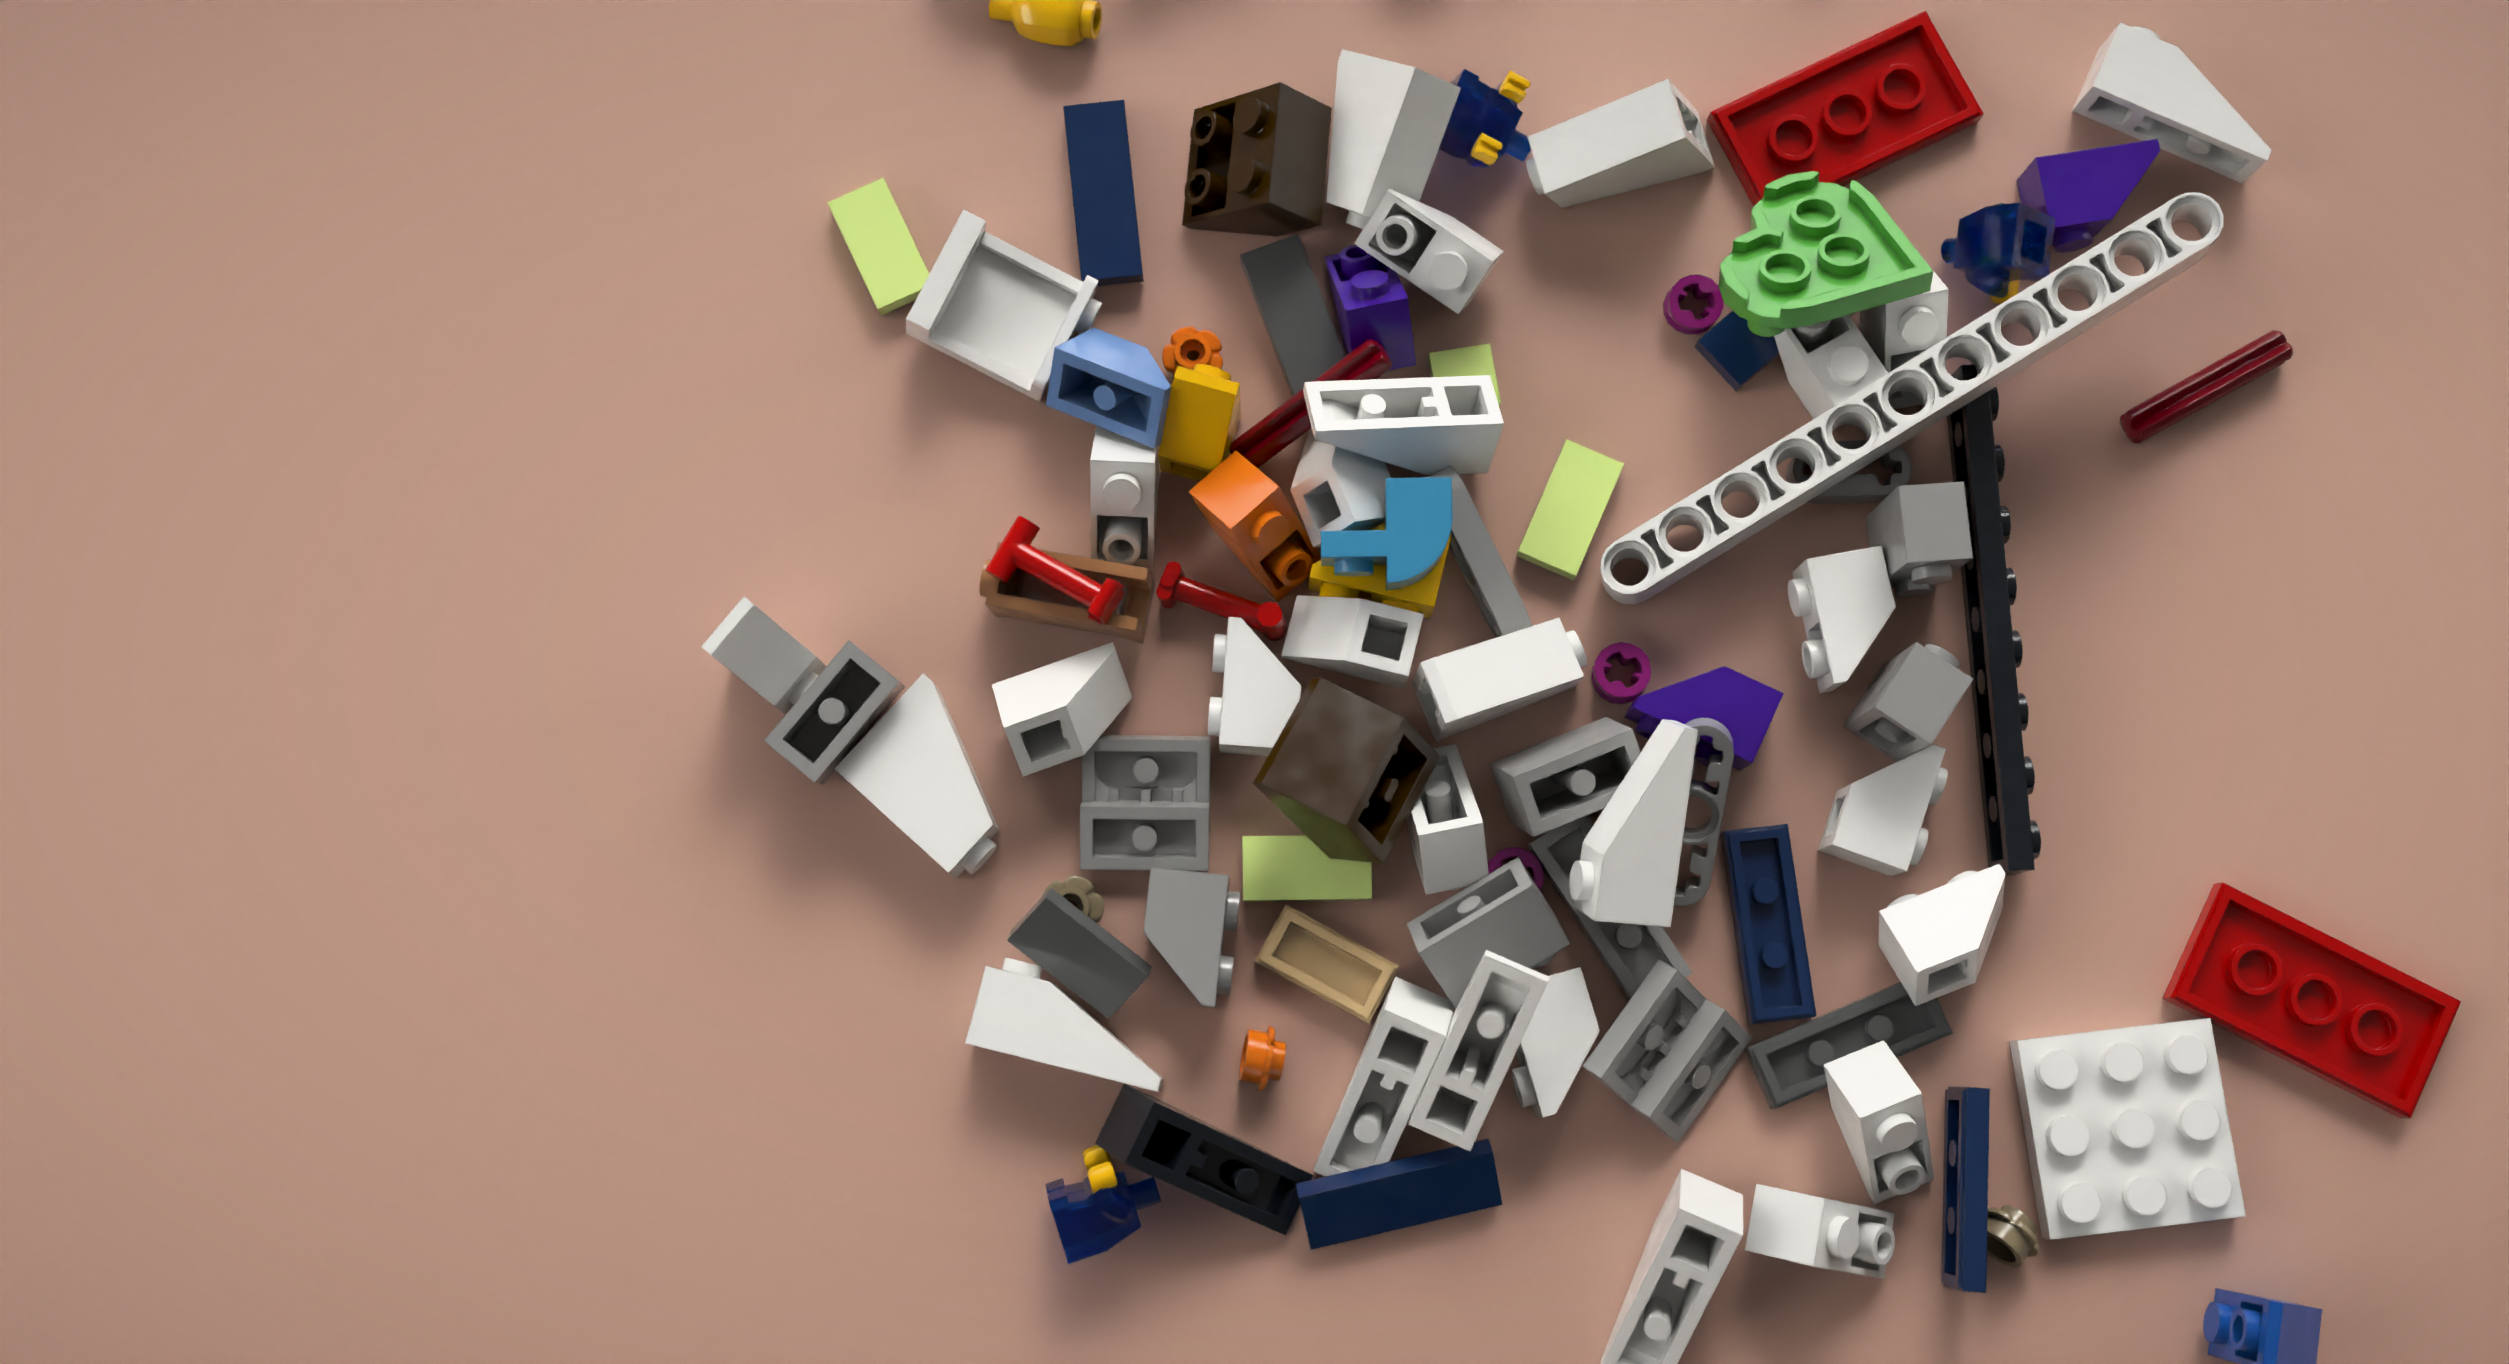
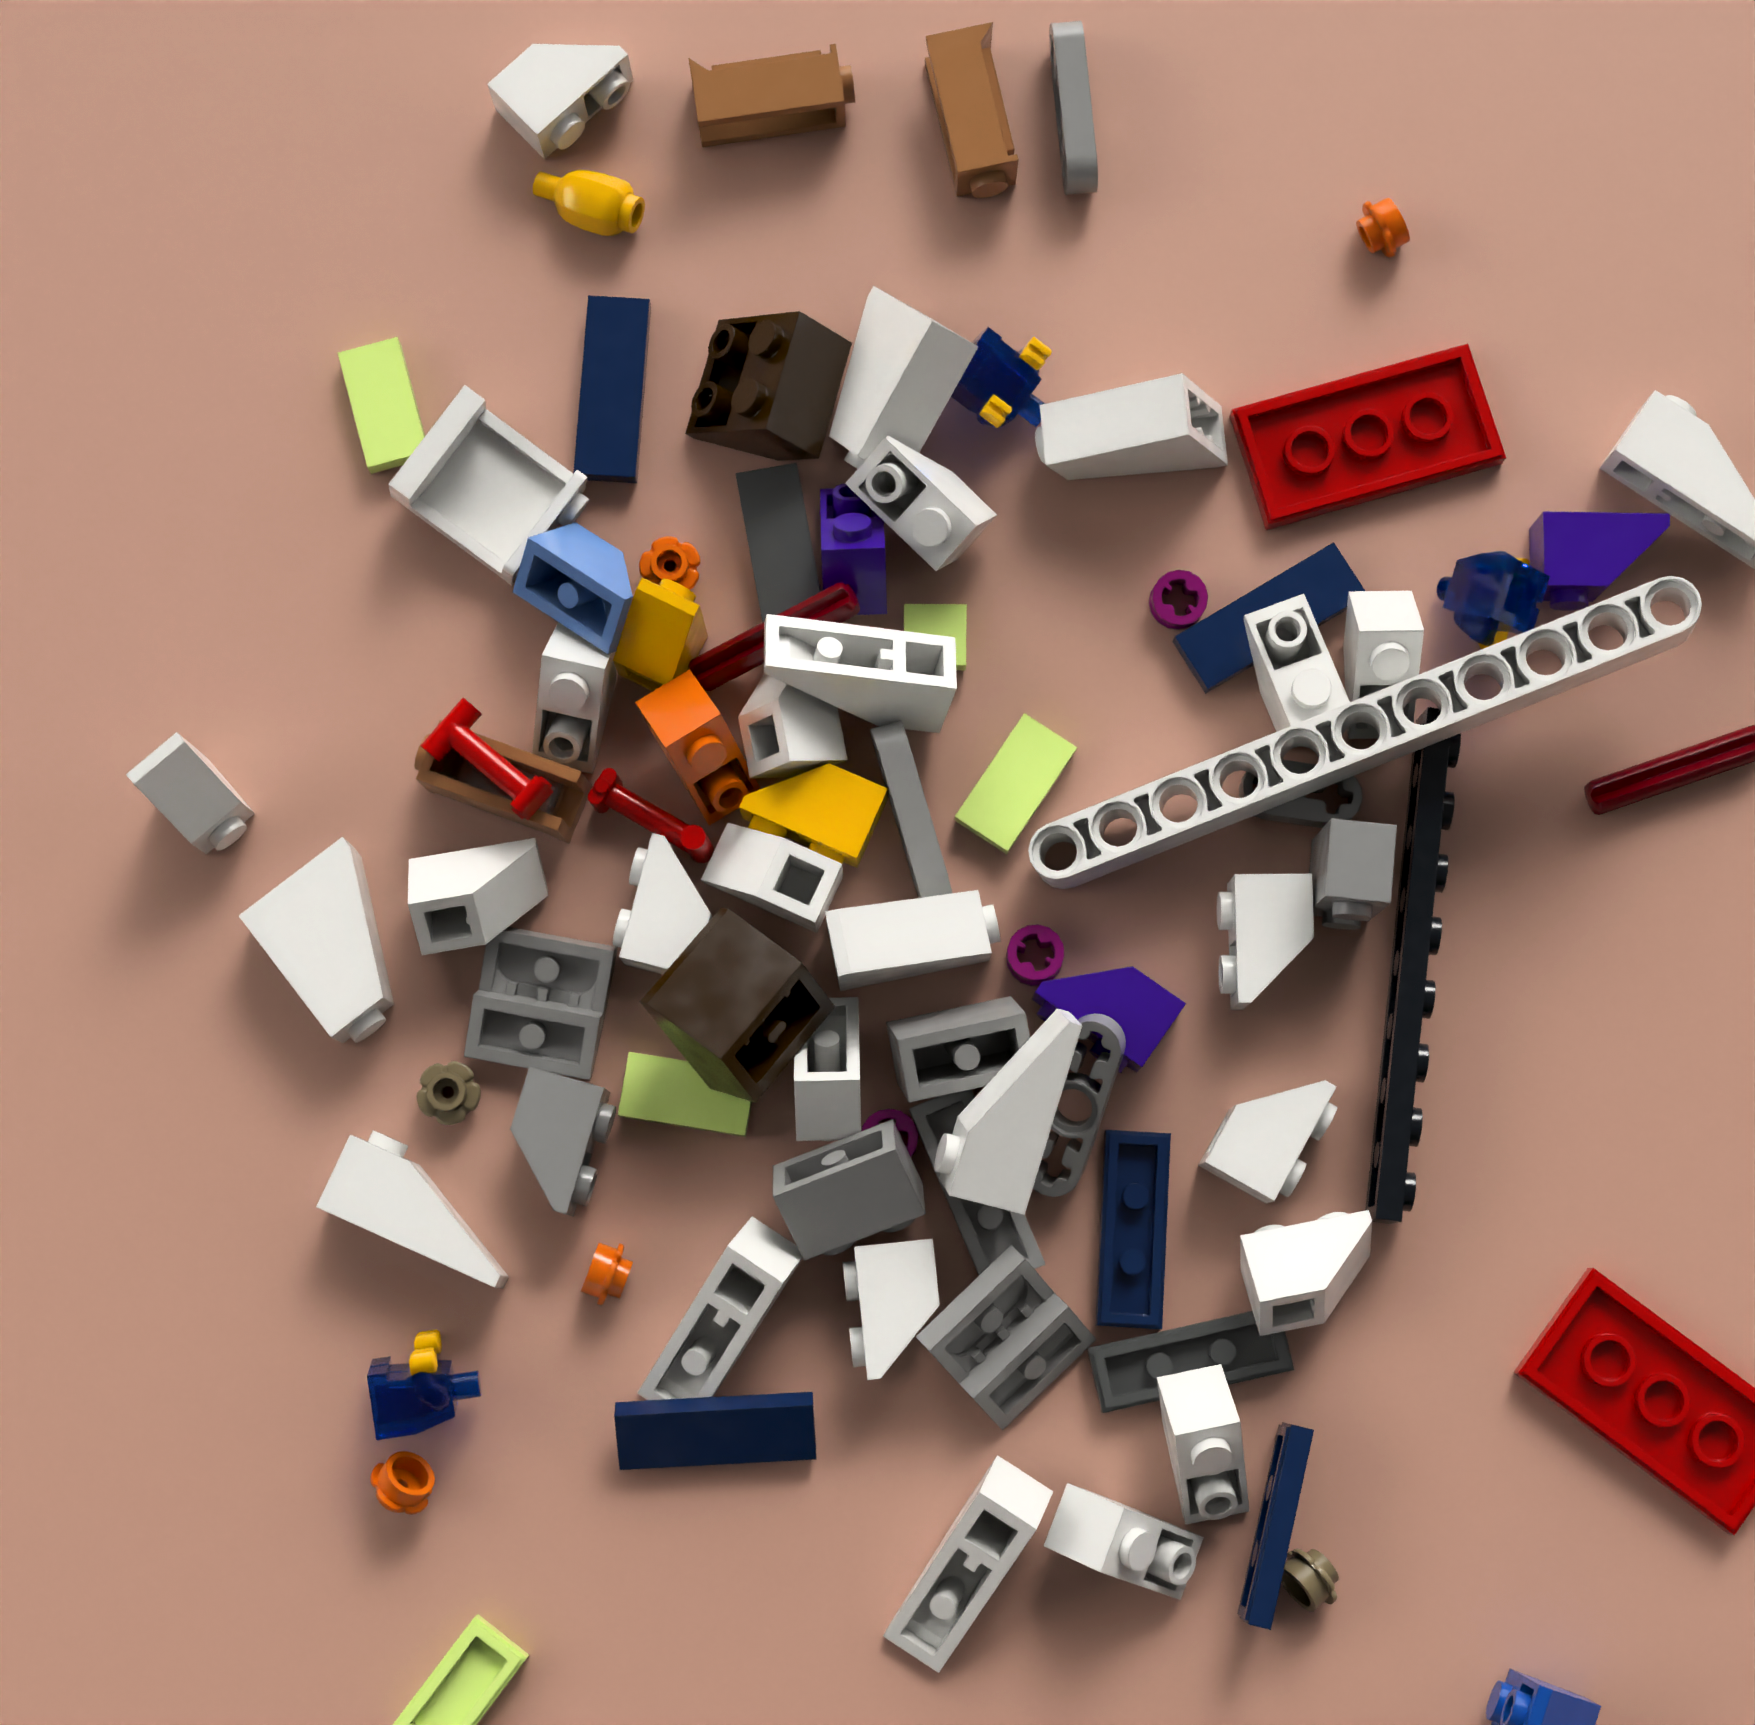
camera: 10 degrees right, 0 degrees up
(834, 713) = (249, 860): light grey brick -> none
(1079, 953) = (446, 1138): dark grey tile -> none
(1099, 1301) = (403, 1482): none -> orange plate
(1202, 1159) = (528, 1362): black slope -> none
(1326, 964) = (688, 1191): tan tile -> none
(1413, 538) = (846, 783): dark azure brick -> none
(1478, 1049) = (811, 1302): white slope -> none
(1818, 257) = (1300, 575): bright green plate -> none
(1909, 700) = (1309, 1032): light grey brick -> none
(2127, 1129) = (1450, 1495): white plate -> none

